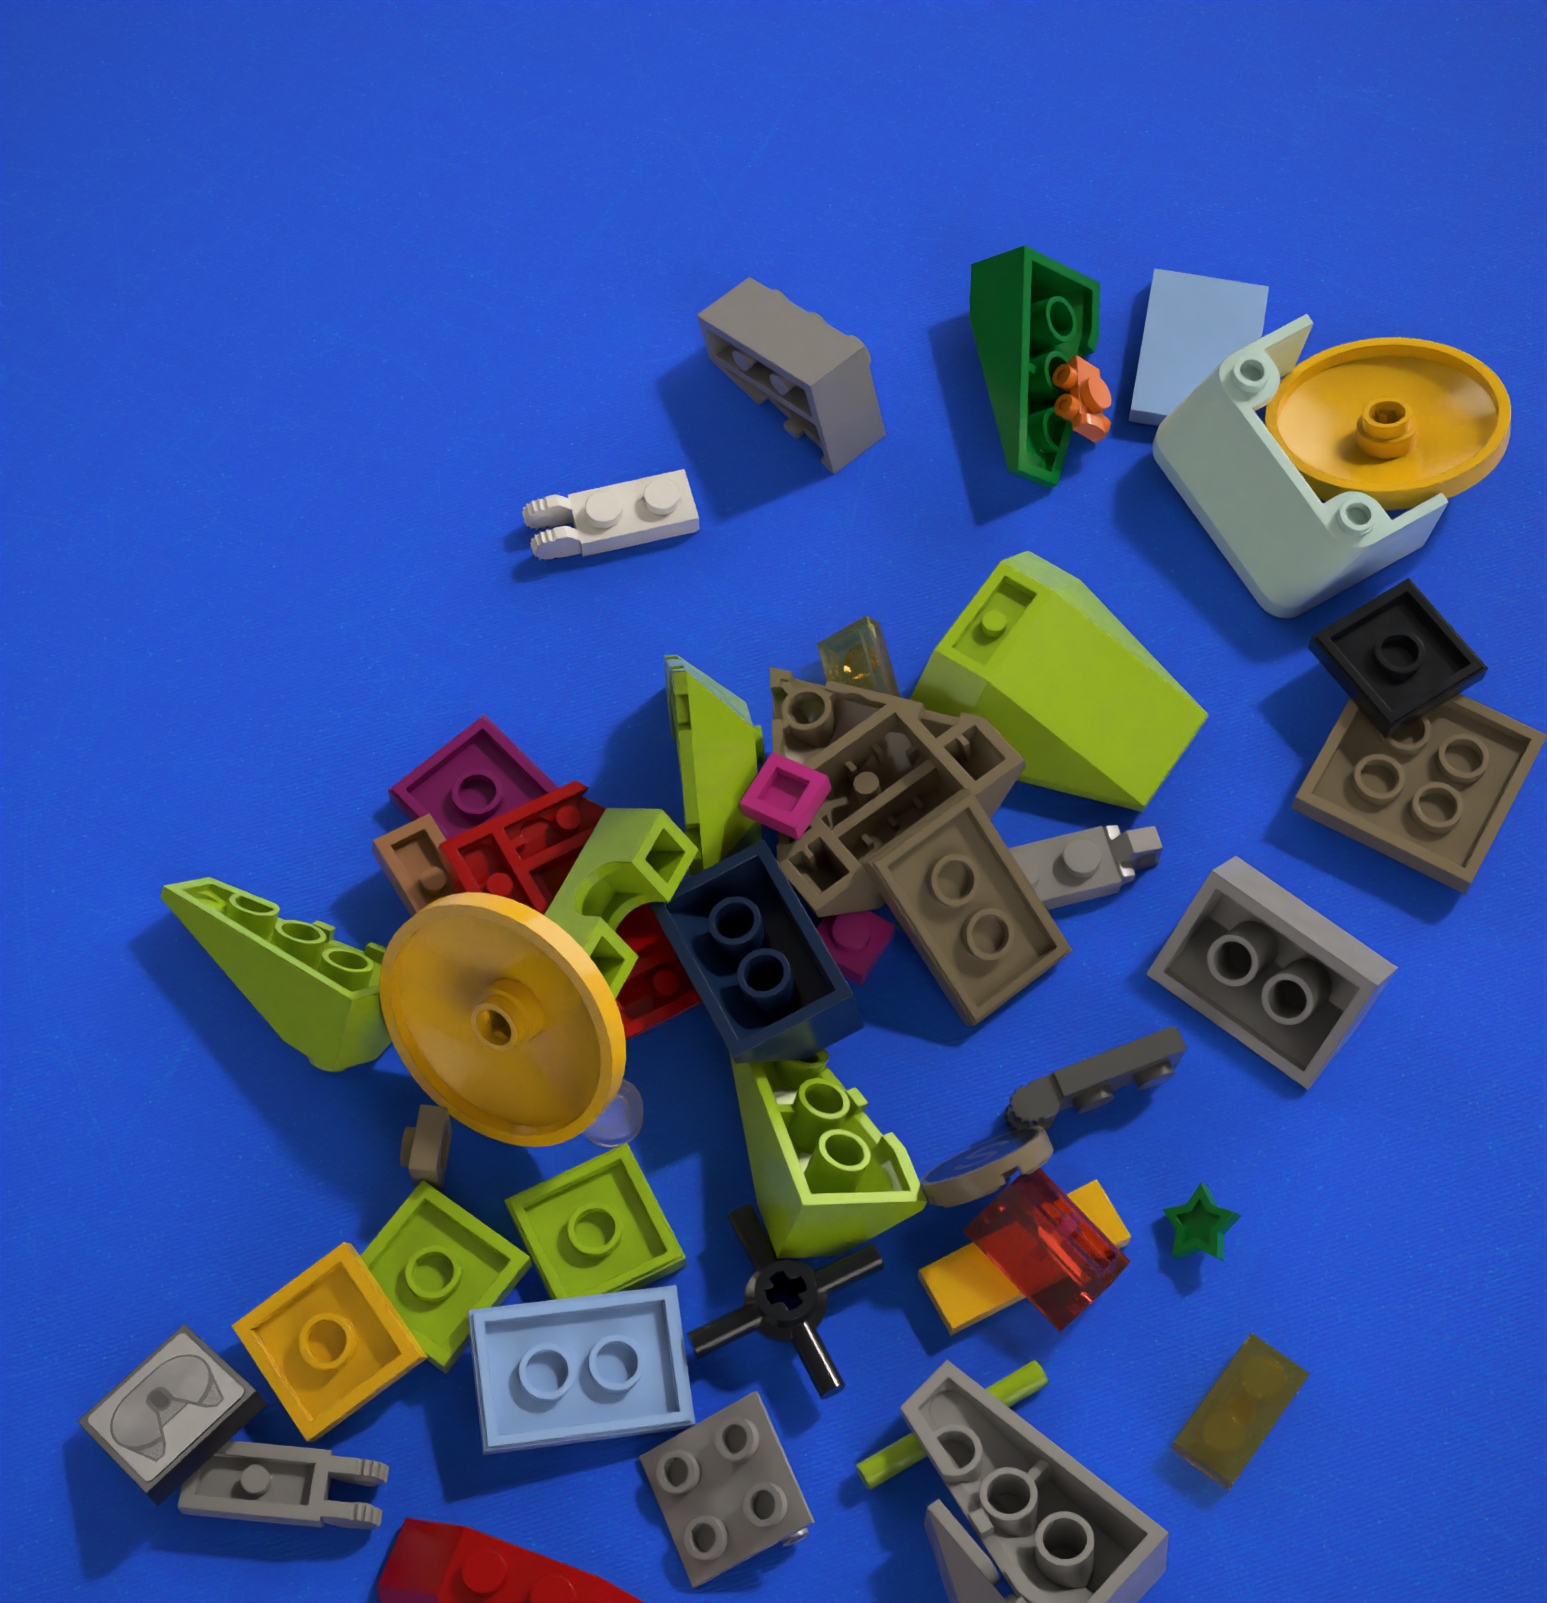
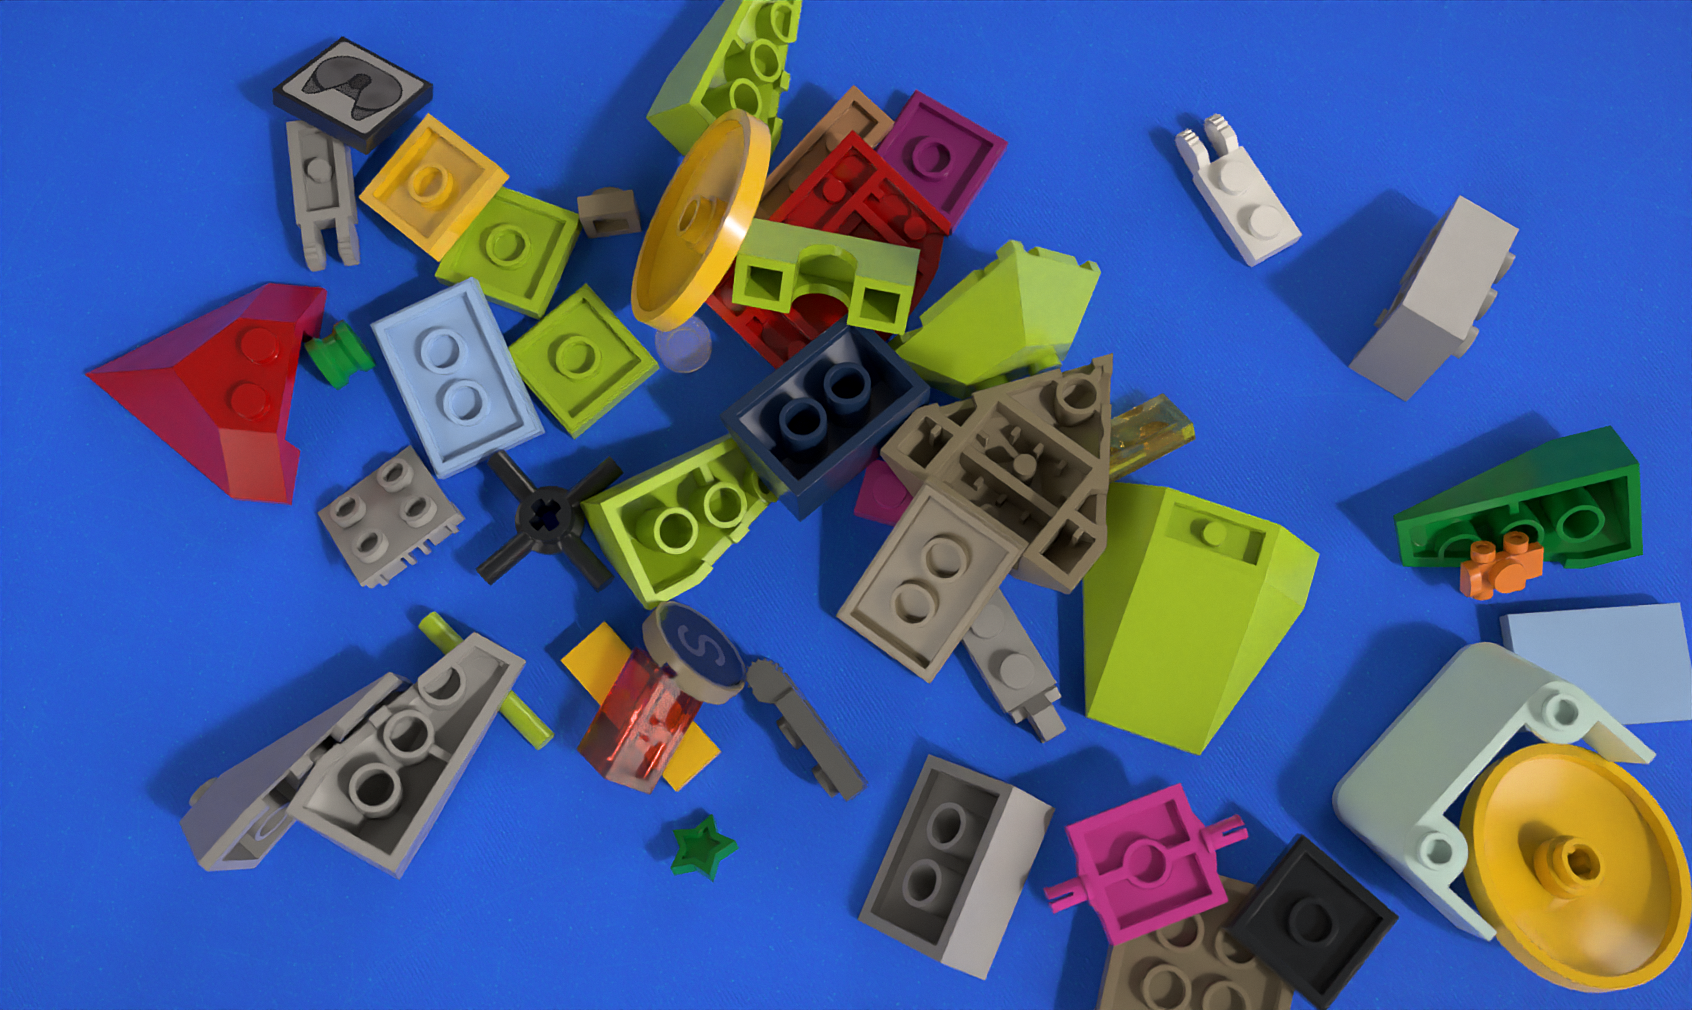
camera: 75 degrees right, 15 degrees up
(507, 1502) = (340, 354): none -> green wheel
(785, 795) = (977, 394): dark pink plate -> none
(1239, 1411) = (550, 916): clear yellow plate -> none
(1312, 782) = (1146, 864): none -> dark pink plate

